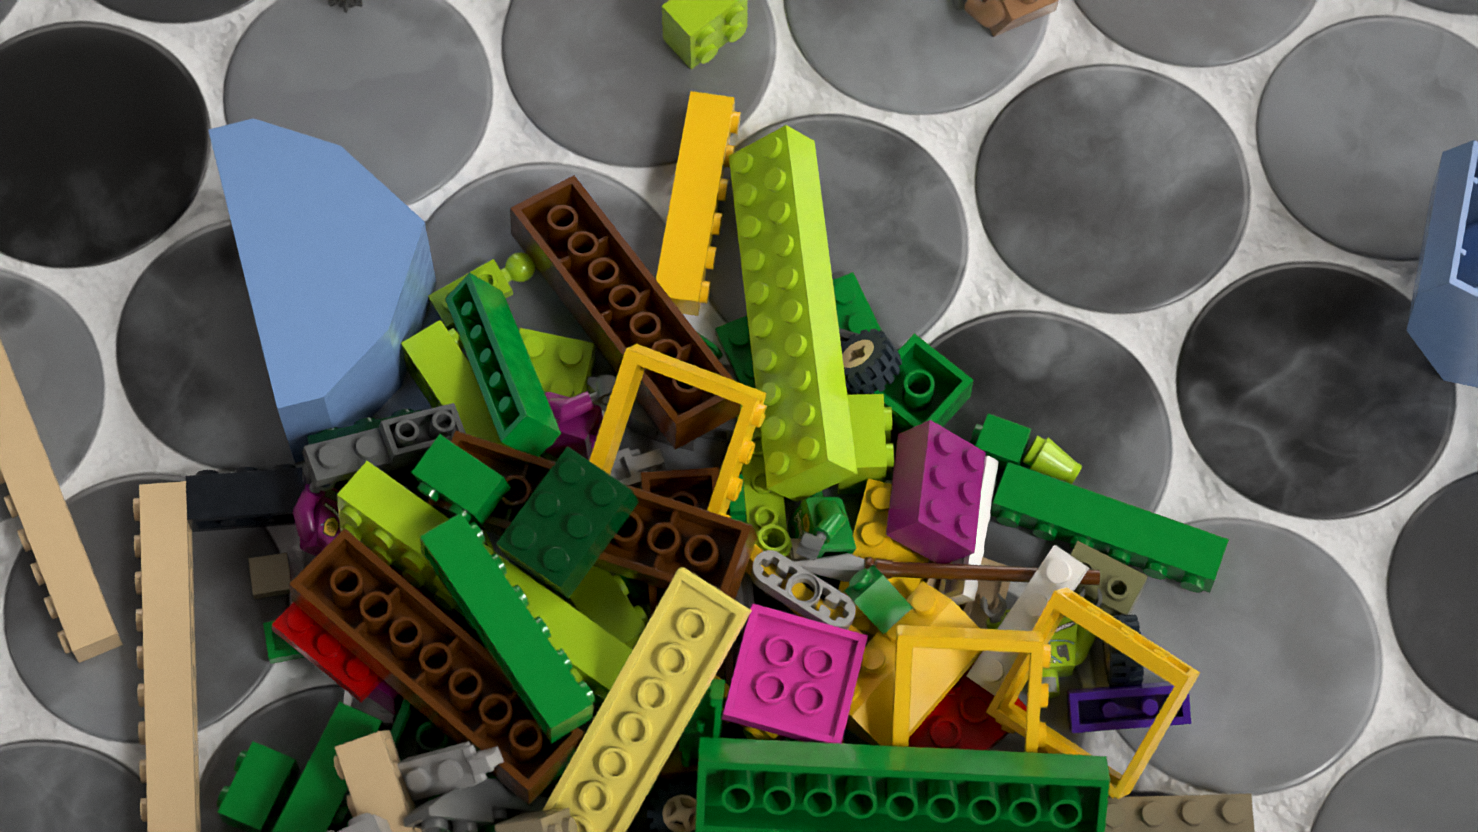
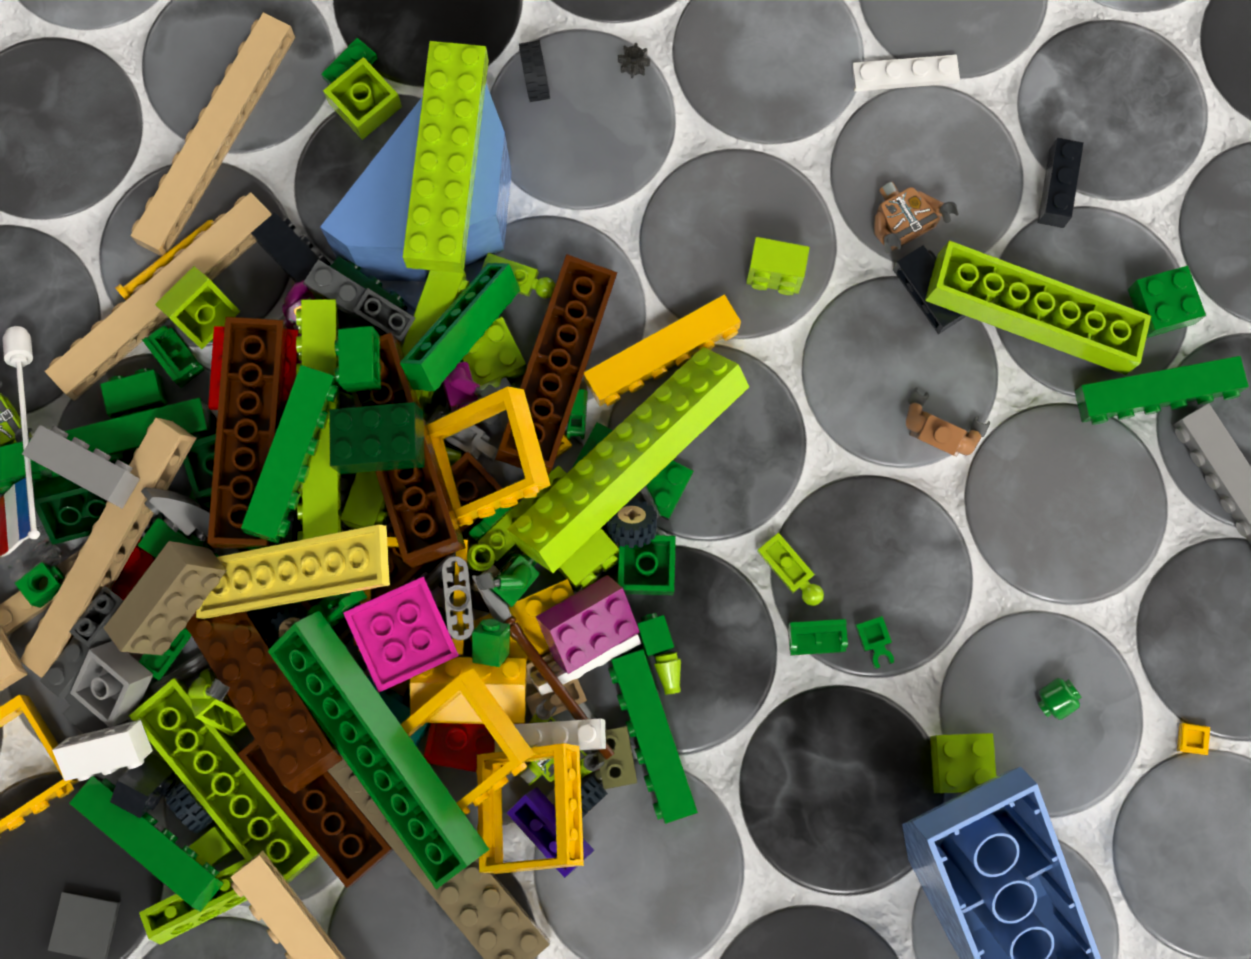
camera: 50 degrees right, 10 degrees up
(79, 281) = (347, 59): none -> green plate
(126, 713) = (126, 290): none -> yellow bar
(136, 289) = (362, 98): none -> lime brick
(224, 638) = (197, 306): none -> lime brick
(249, 717) = (173, 355): none -> green hinge
(270, 575) = (262, 302): dark tan tile -> none
(271, 90) = (534, 71): none -> black tyre
(322, 218) = (446, 157): none -> lime brick
(447, 769) = (191, 488): light grey hinge -> none
(1041, 256) = (791, 569): none -> lime plate
(1136, 285) = (817, 637): none -> green hinge
(1182, 230) = (874, 637): none -> green plate
(1382, 245) = (962, 761): none -> lime brick
(1392, 103) = (1059, 699): none -> green head

